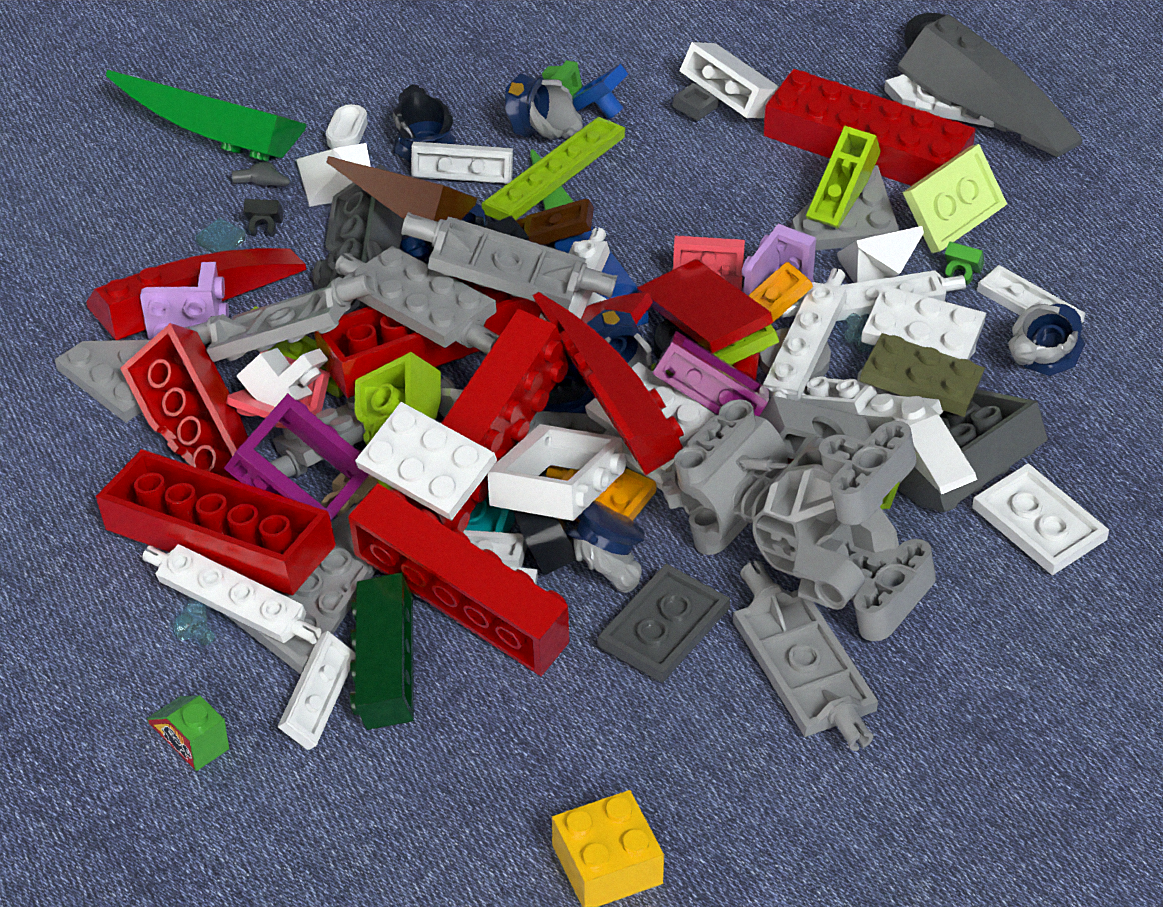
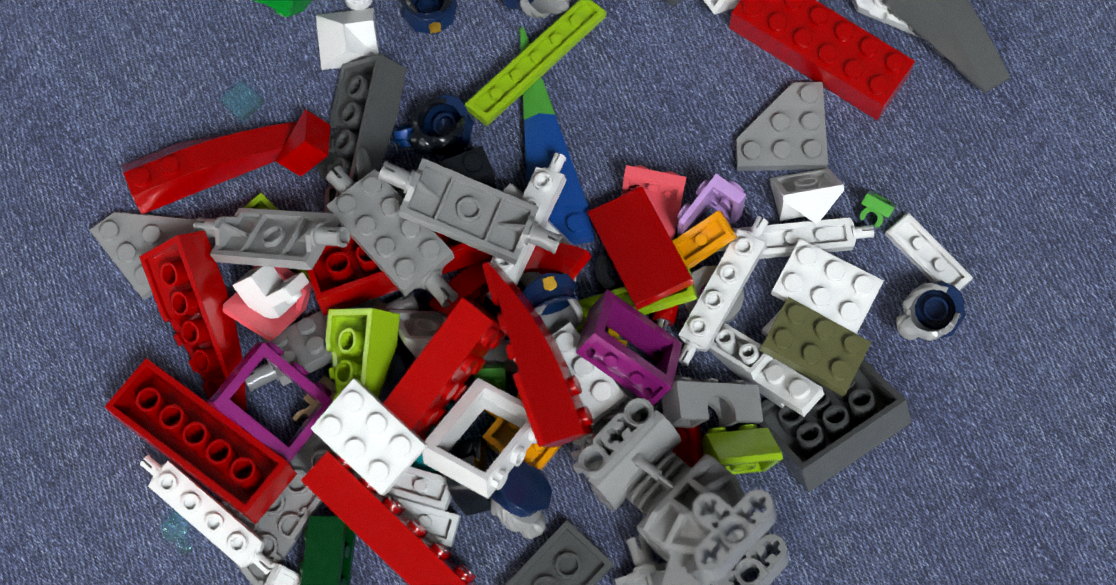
camera: 10 degrees right, 25 degrees up
(184, 304) = (212, 203): lavender bracket -> none
(261, 174) = (284, 31): dark grey animal -> none
(263, 211) = (278, 81): pearl dark grey tile -> none
(301, 261) = (306, 144): none -> red slope
(406, 193) = (402, 111): reddish brown wedge -> none
(462, 162) = (457, 41): white tile -> none
(558, 222) = (522, 132): reddish brown hinge -> none
(844, 176) = (786, 110): lime slope -> none
(854, 333) = (773, 273): clear light blue plant -> none
(935, 449) = (805, 453): white slope -> none
(955, 198) = (882, 138): yellowish green plate -> none
(1040, 519) = (888, 506): white plate -> none

